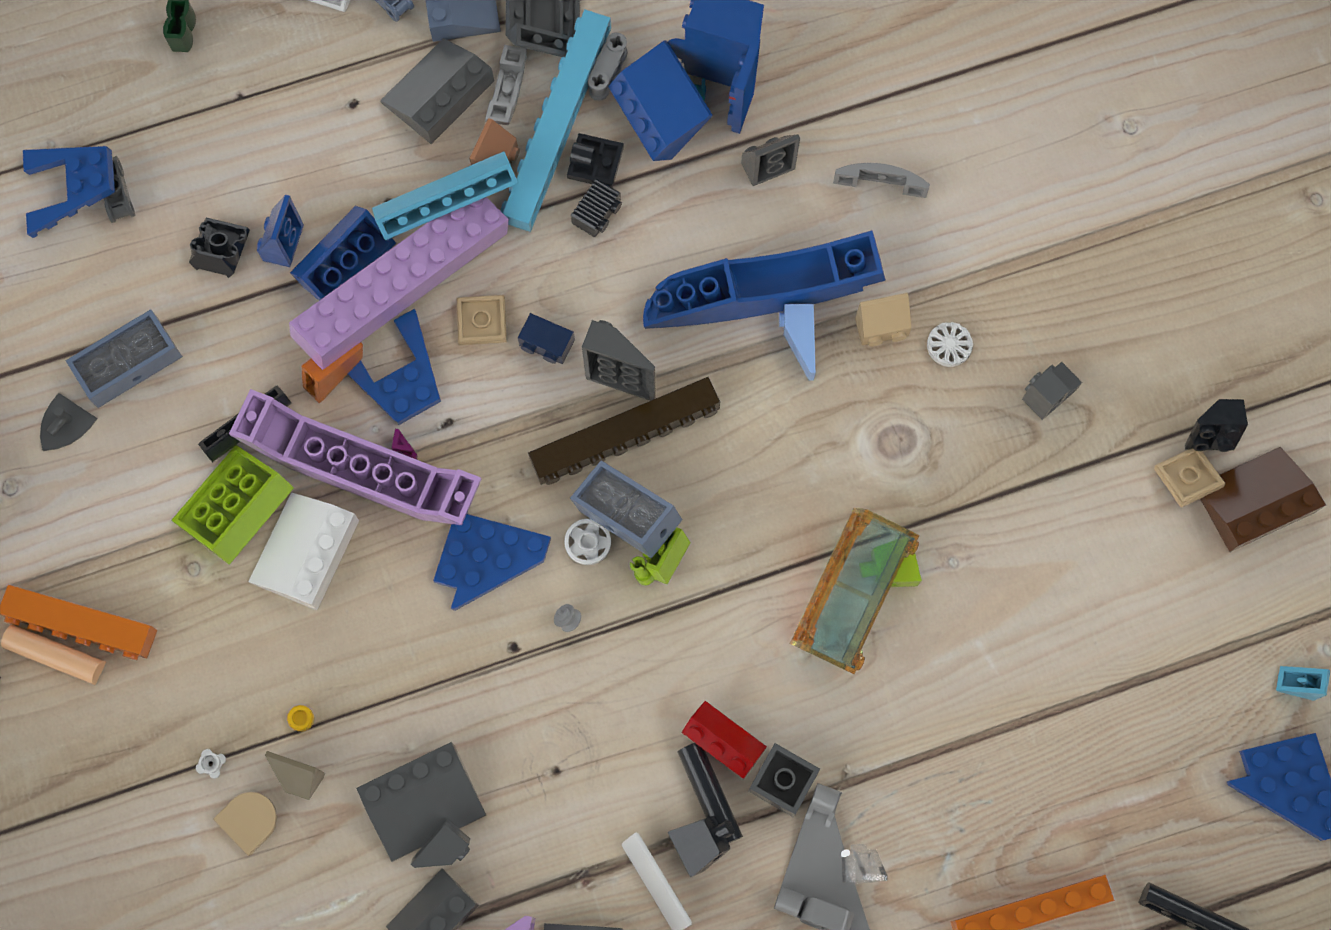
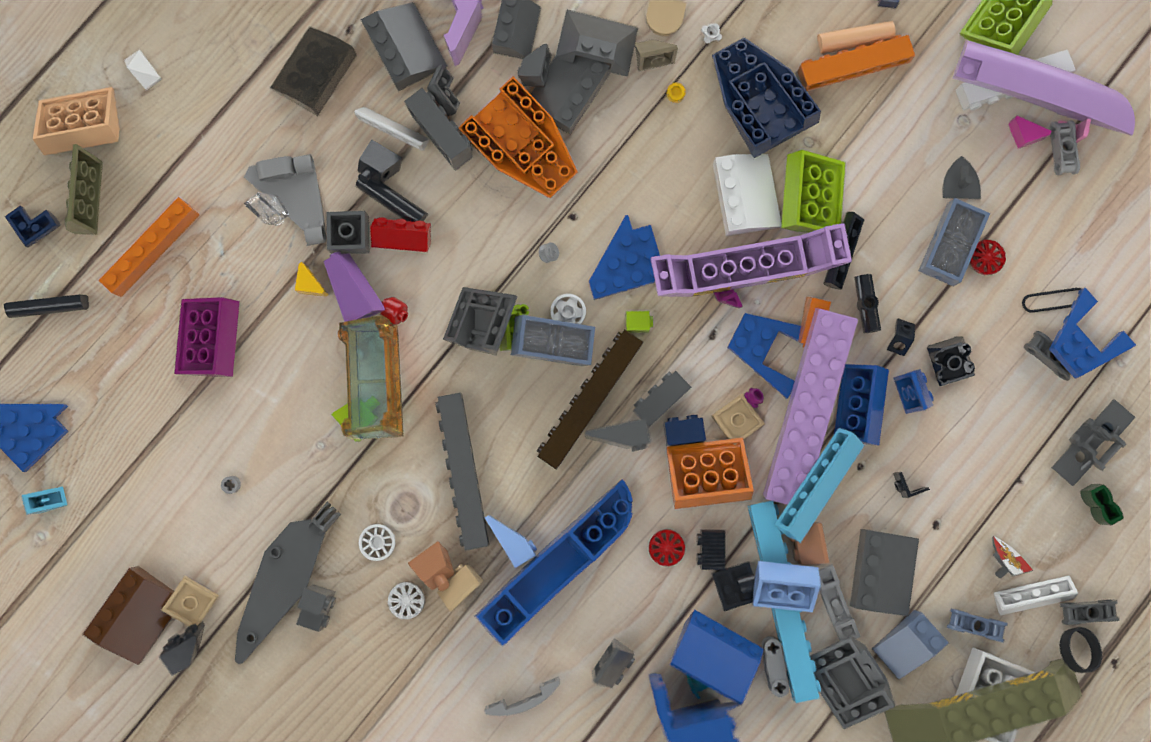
camera: 150 degrees right, 10 degrees up
(68, 255) = (1045, 293): none -> black piece
(99, 326) = (987, 257): none -> red wheel
(140, 92) = (1089, 437): none -> dark grey piece
(209, 648) = (762, 96): none -> dark blue wedge
(247, 298) = (903, 333): none -> black bracket
(255, 366) = (869, 316): none -> black piece
(306, 28) = (1009, 560): none -> shield
(350, 834) = (597, 40): none -> dark grey slope
(361, 154) = (902, 487): none -> black bracket
(448, 330) = (754, 397): none -> magenta plate
(516, 767) = (521, 140): none -> orange wedge
(518, 481) = (638, 321): none -> lime brick
(546, 123) = (786, 586): none -> light blue slope
(547, 386) = (661, 397): none -> dark grey brick
(548, 281) = (709, 473): none -> orange slope
(571, 888) = (440, 89): none -> dark grey brick
(603, 838) = (437, 127): none -> dark grey brick
(641, 238) = (666, 547): none -> red wheel
(691, 582) = (480, 320): none -> dark grey slope
(783, 658) = (395, 310): none -> red head
(808, 439) = (463, 471): none -> dark grey brick
(817, 709) = (351, 288): none -> medium lavender slope
(864, 750) = (307, 283): none -> yellow slope
(900, 354) = (433, 567): none -> nougat torso
(947, 421) = (376, 542): none -> white wheel
(1019, 759) = (207, 337): none -> magenta slope
(1070, 578) = (235, 480): none -> light grey bush
(1072, 443) = (281, 578): none -> dark grey wing

